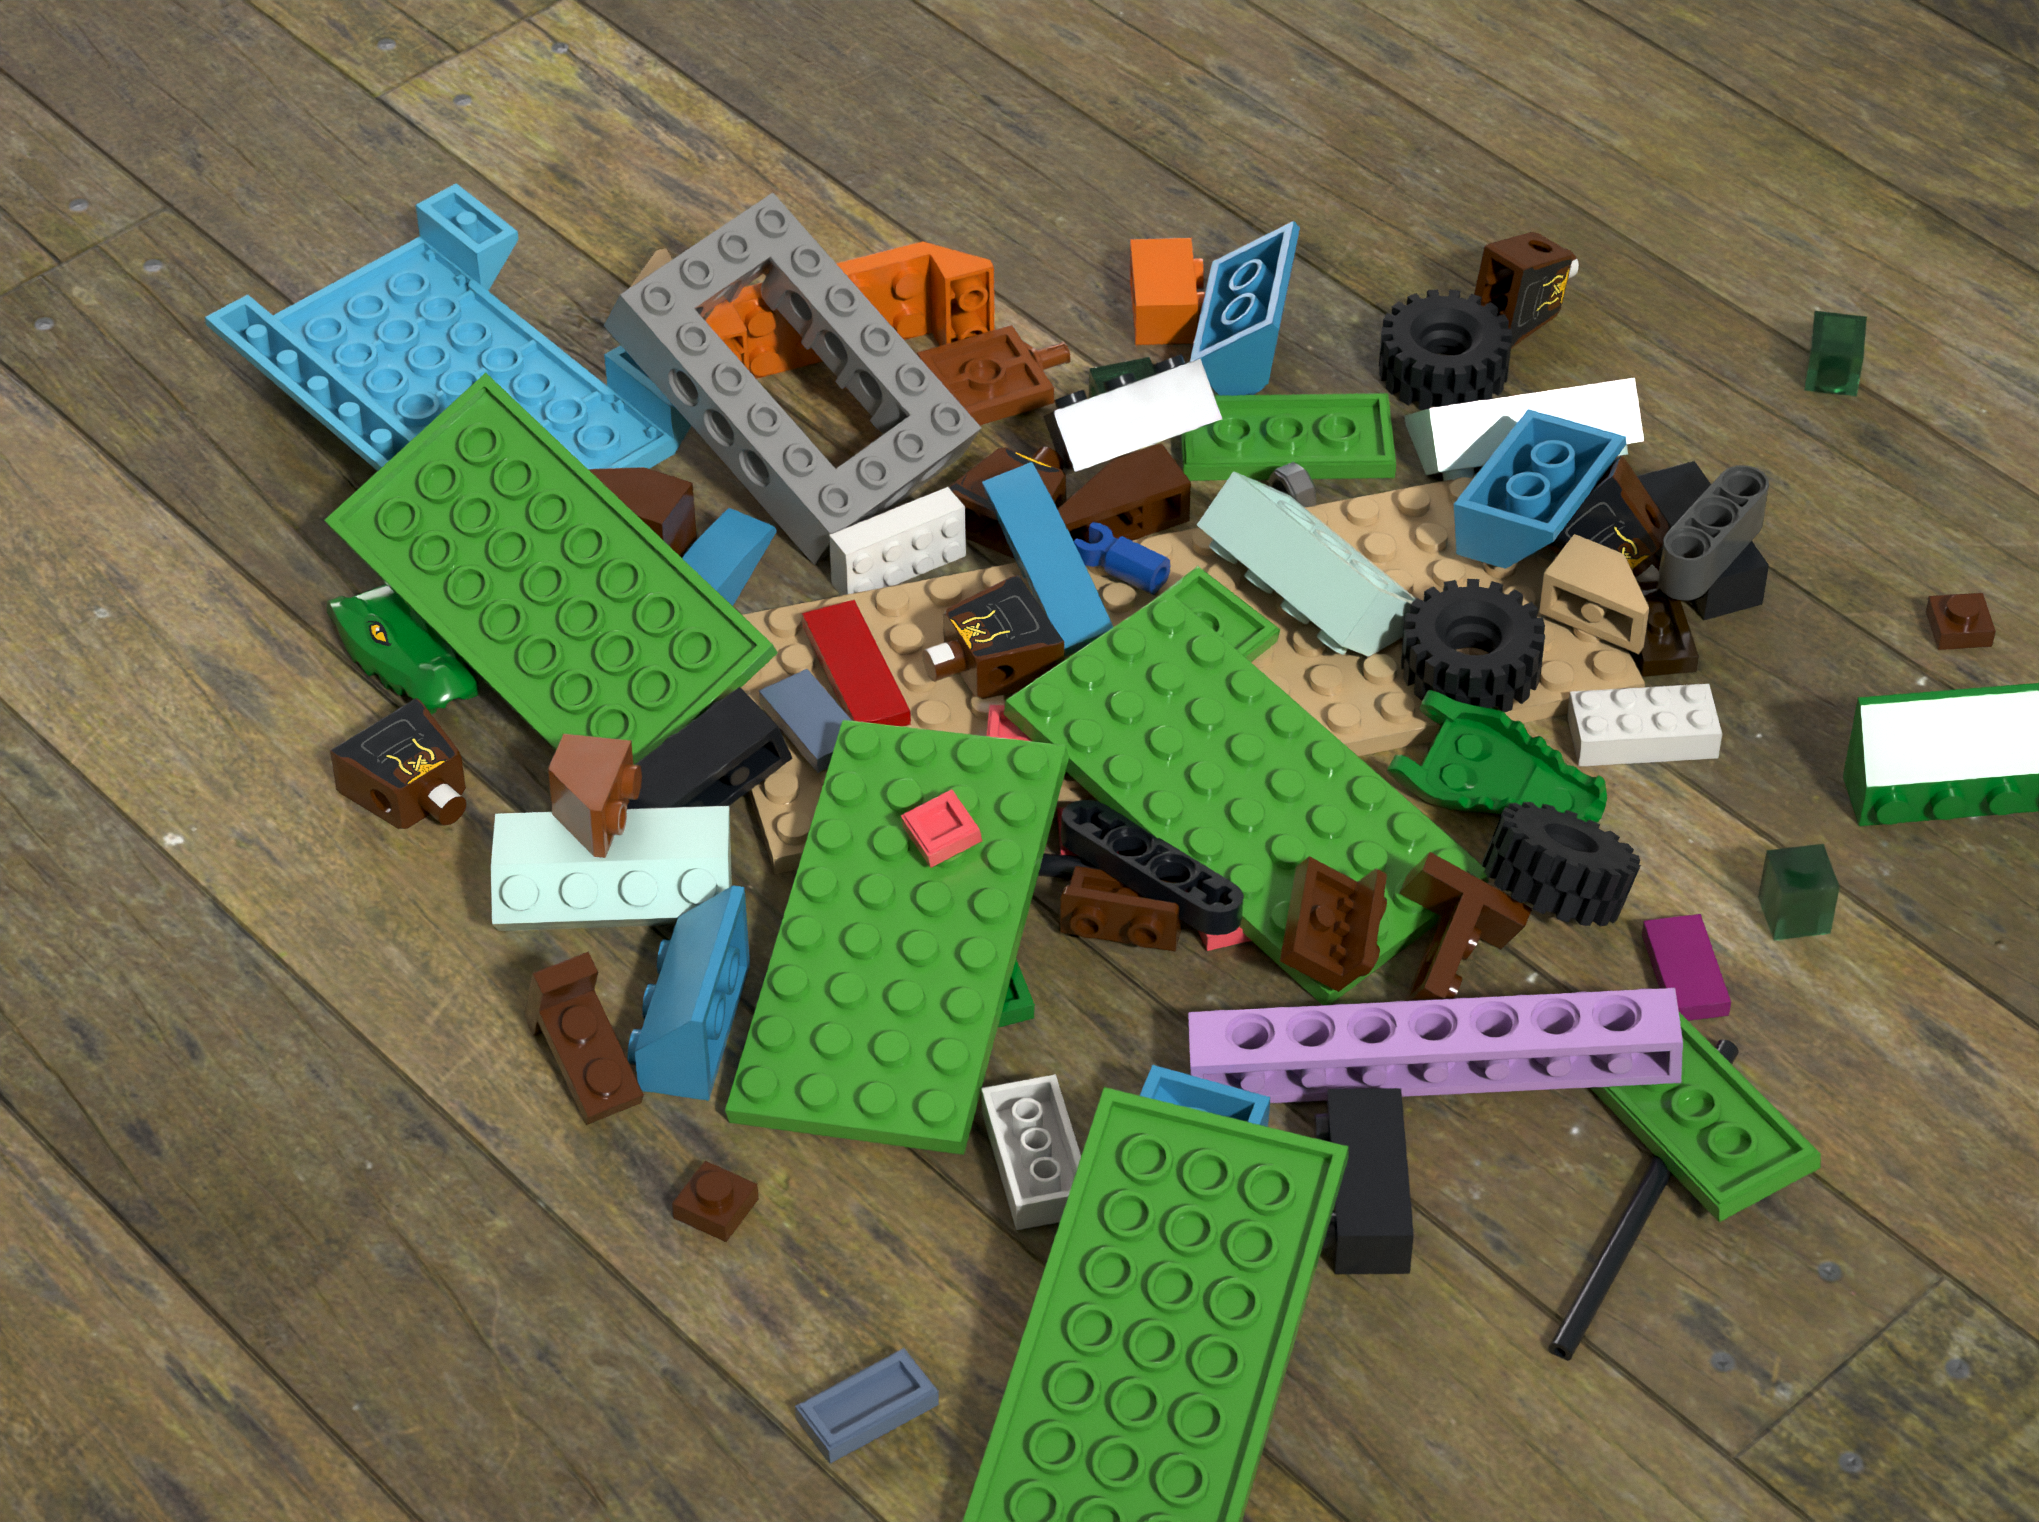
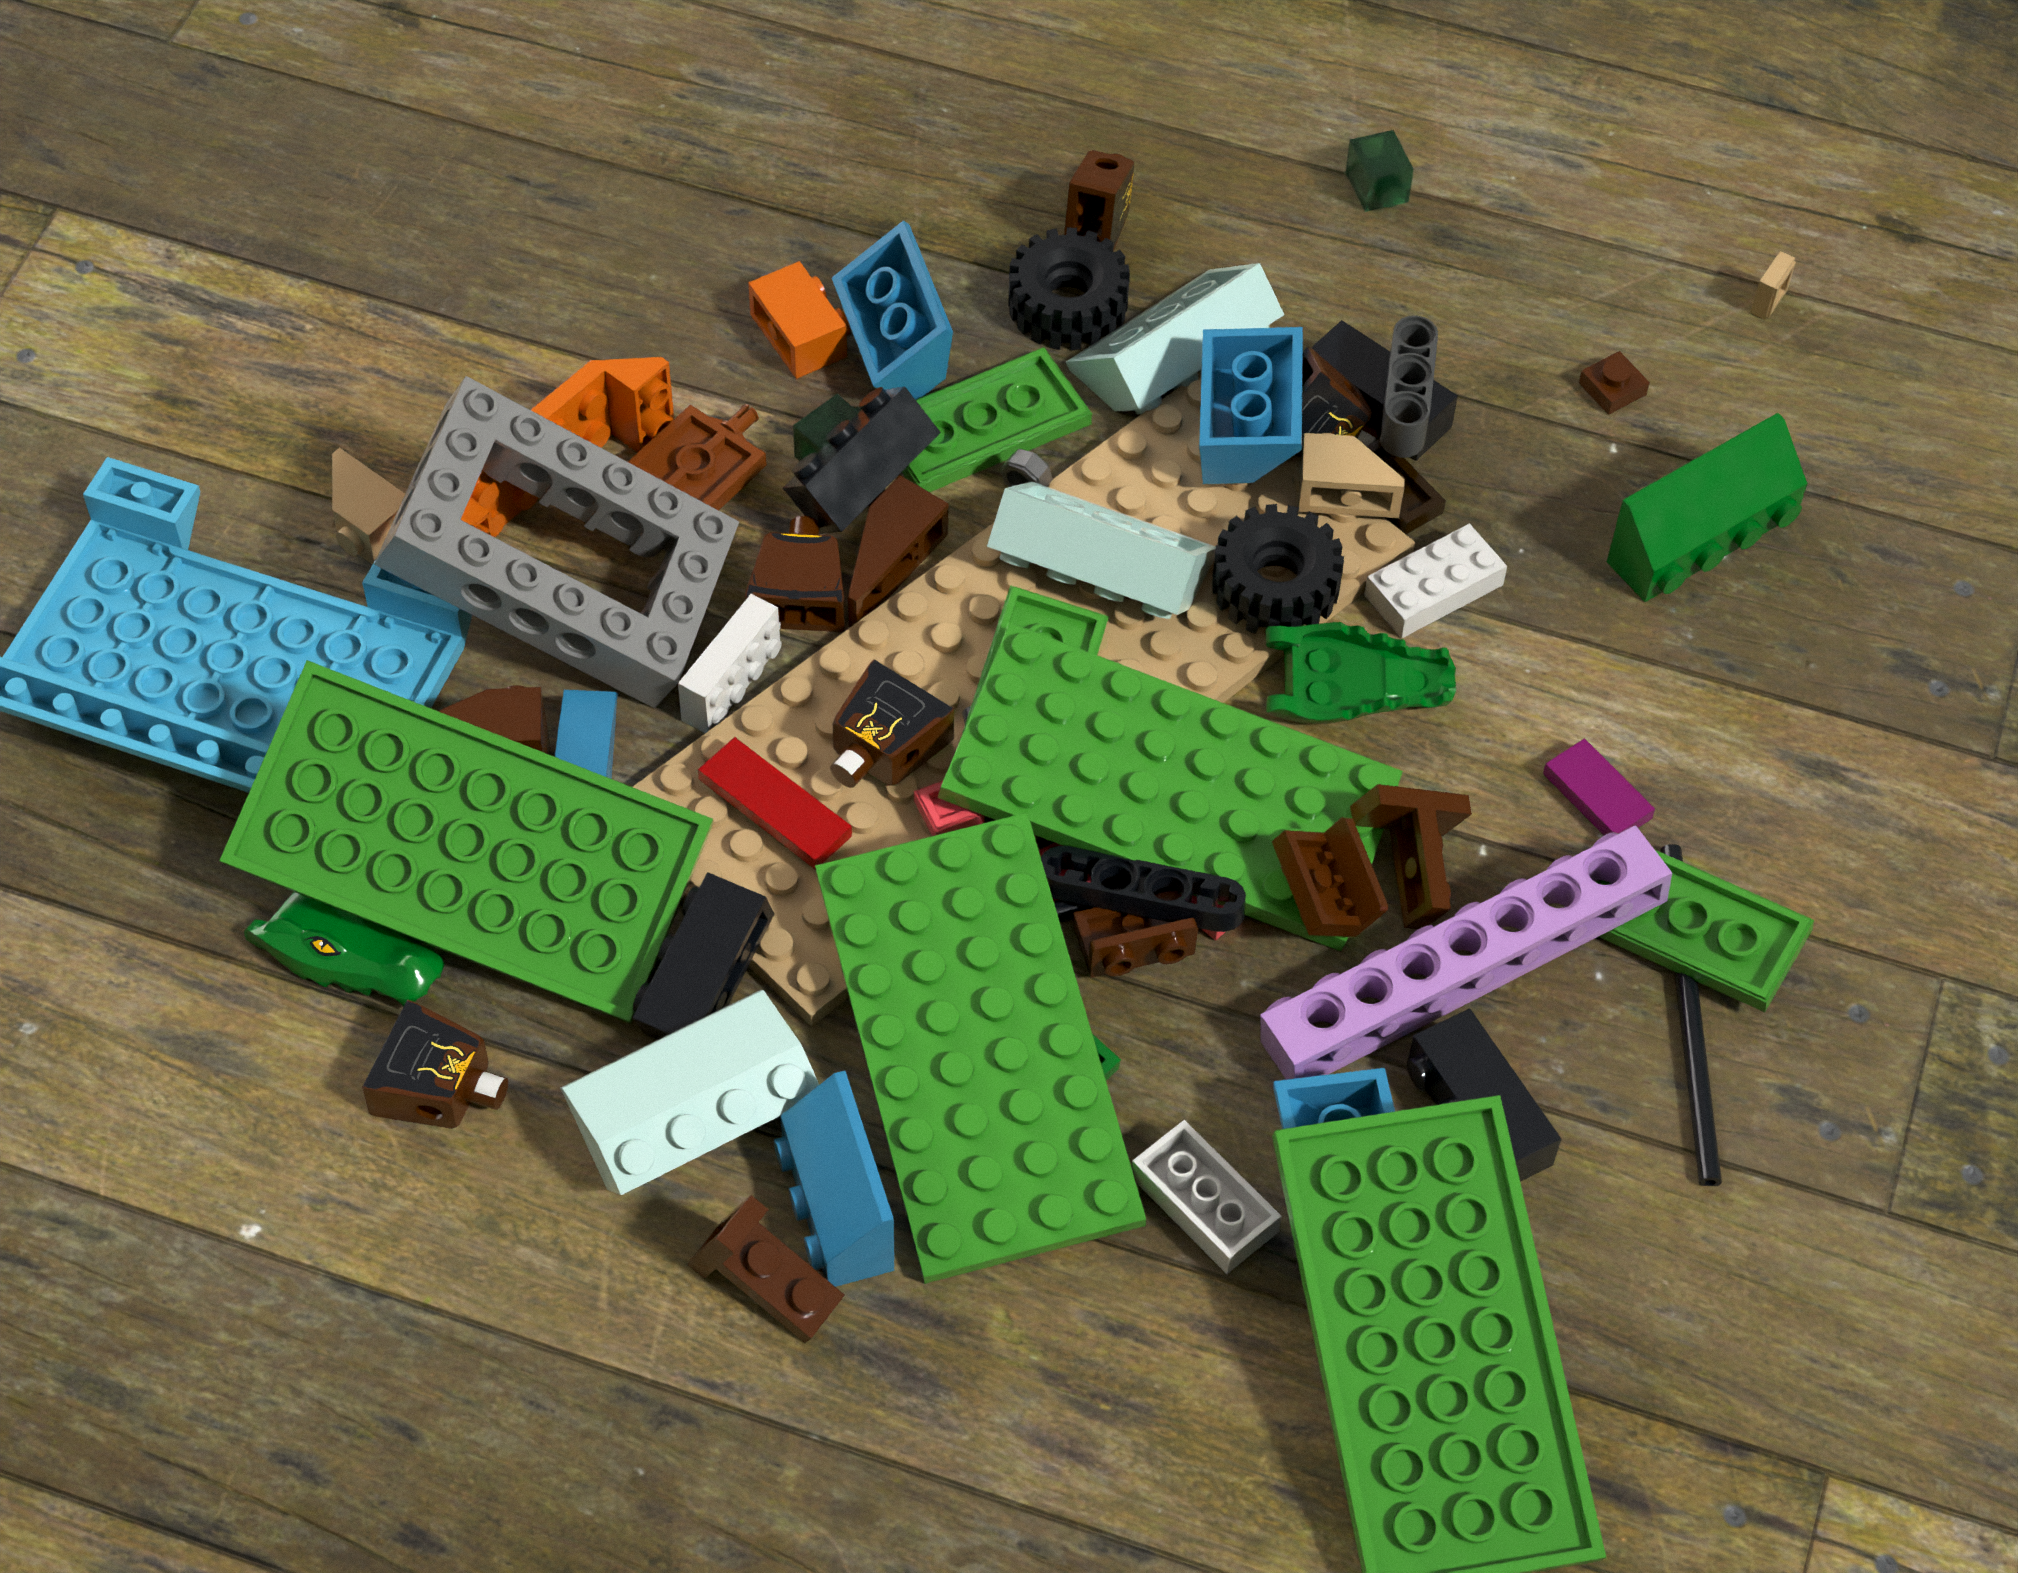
camera: 30 degrees left, 10 degrees up
(592, 787) = (644, 1033): dark orange slope -> none
(715, 1201) = (965, 1366): reddish brown plate -> none
(805, 716) = (767, 869): sand blue tile -> none
(866, 1405) = (1210, 1496): sand blue tile -> none
(941, 828) = (971, 937): coral tile -> none
(1047, 556) = (877, 624): dark azure slope -> none
(1124, 559) = (934, 601): blue bar -> none
(1561, 864) = (1467, 744): black tyre -> none
(1798, 892) = (1650, 687): clear green brick -> none

